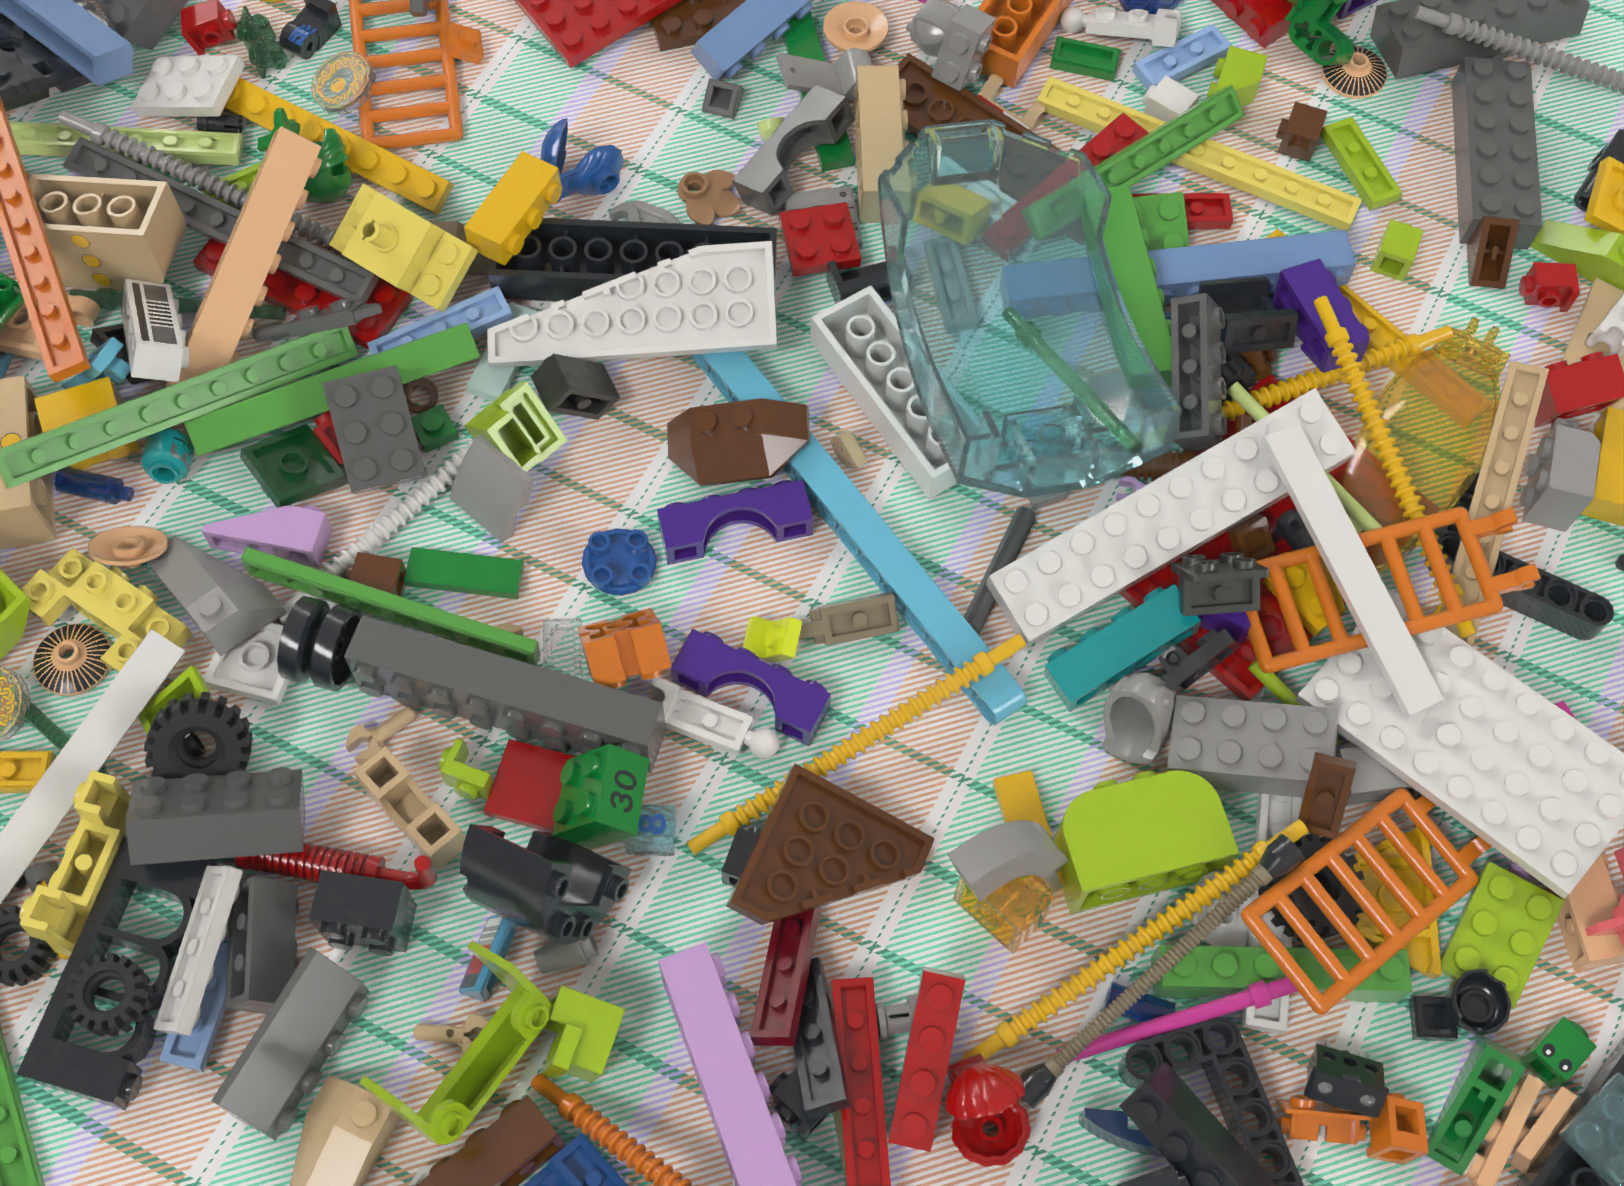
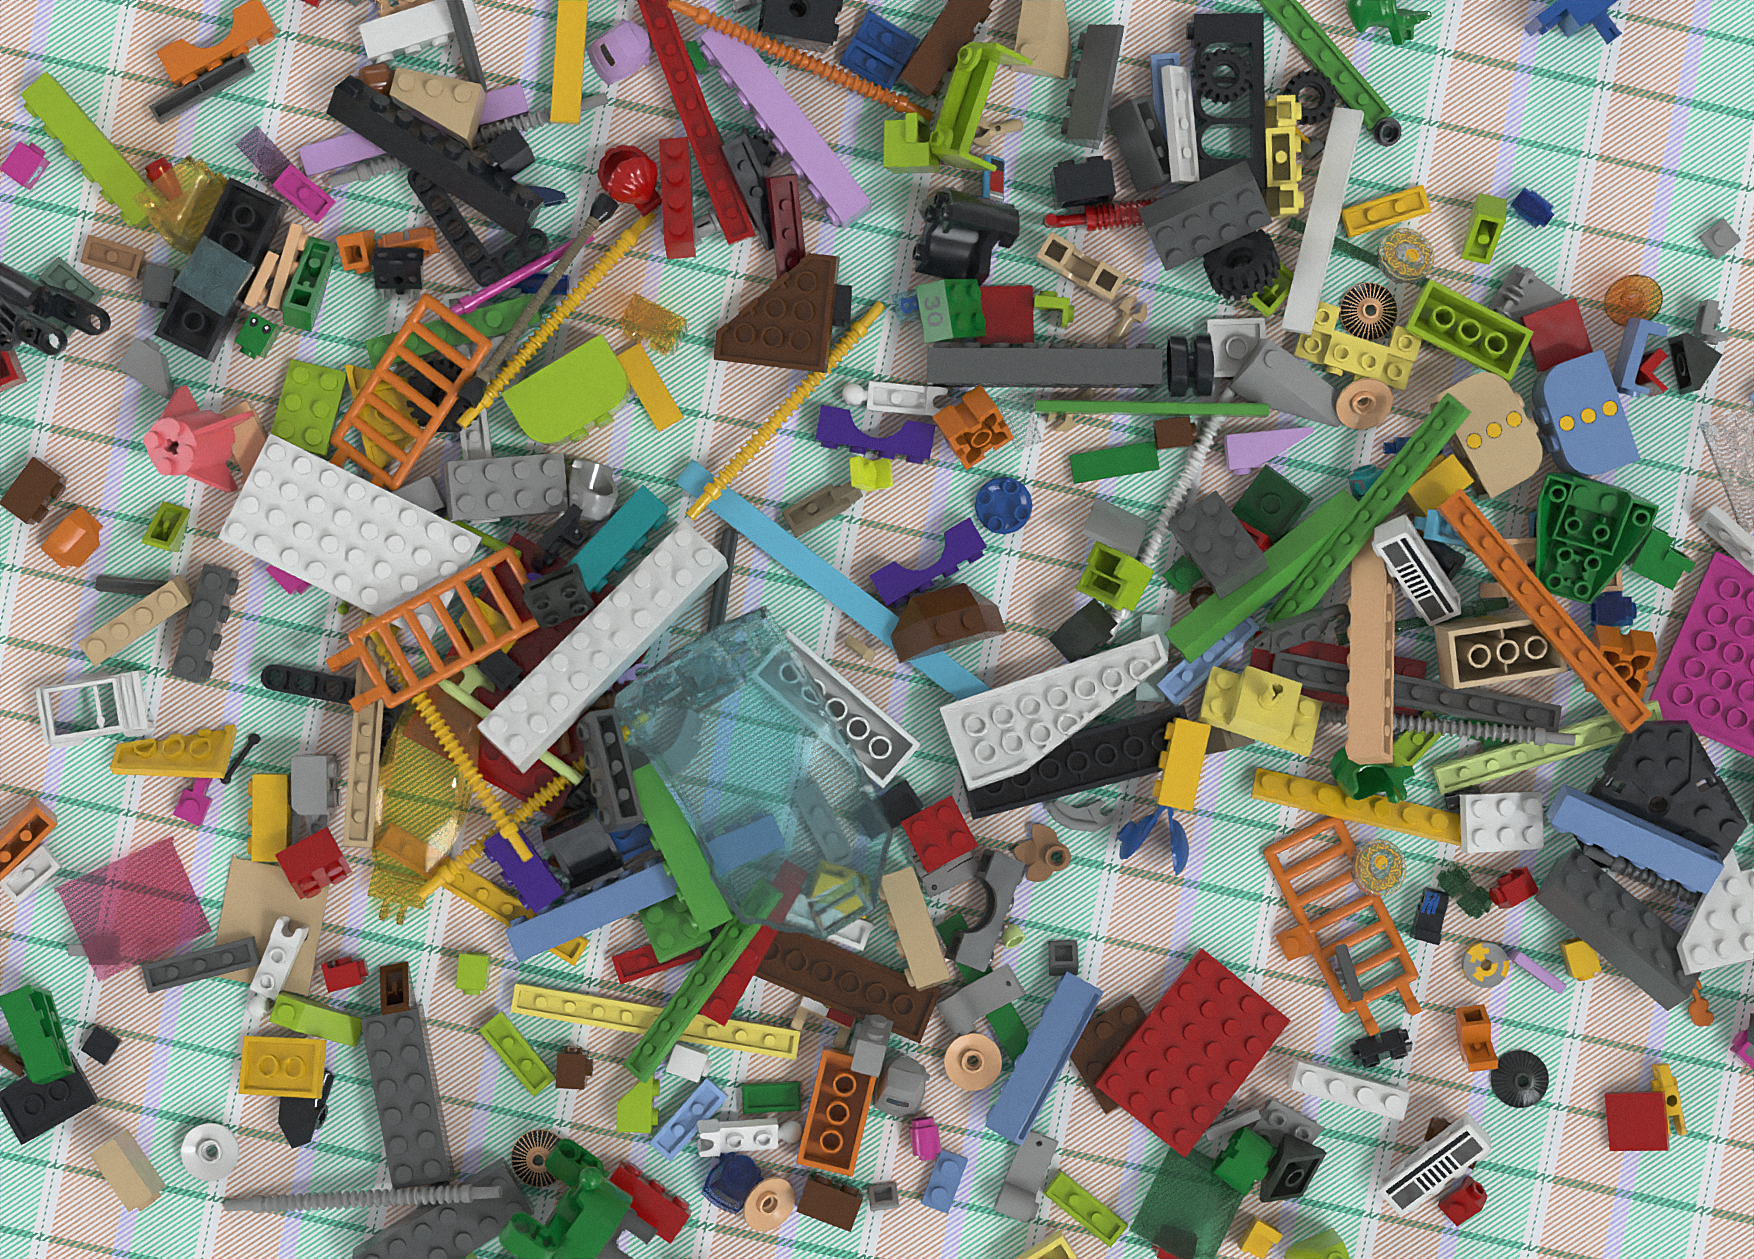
camera: 165 degrees right, 25 degrees up
(1007, 854) = (657, 338): light grey arch -> none
(1031, 337) = (747, 773): clear green bar -> none
(1252, 538) = (536, 652): reddish brown plate -> none
(1326, 794) = (449, 449): reddish brown plate -> none
(1352, 570) = (464, 630): white tile -> none
(1431, 1020) = (344, 337): black tile -> none
(1478, 1002) = (317, 349): black hair -> none

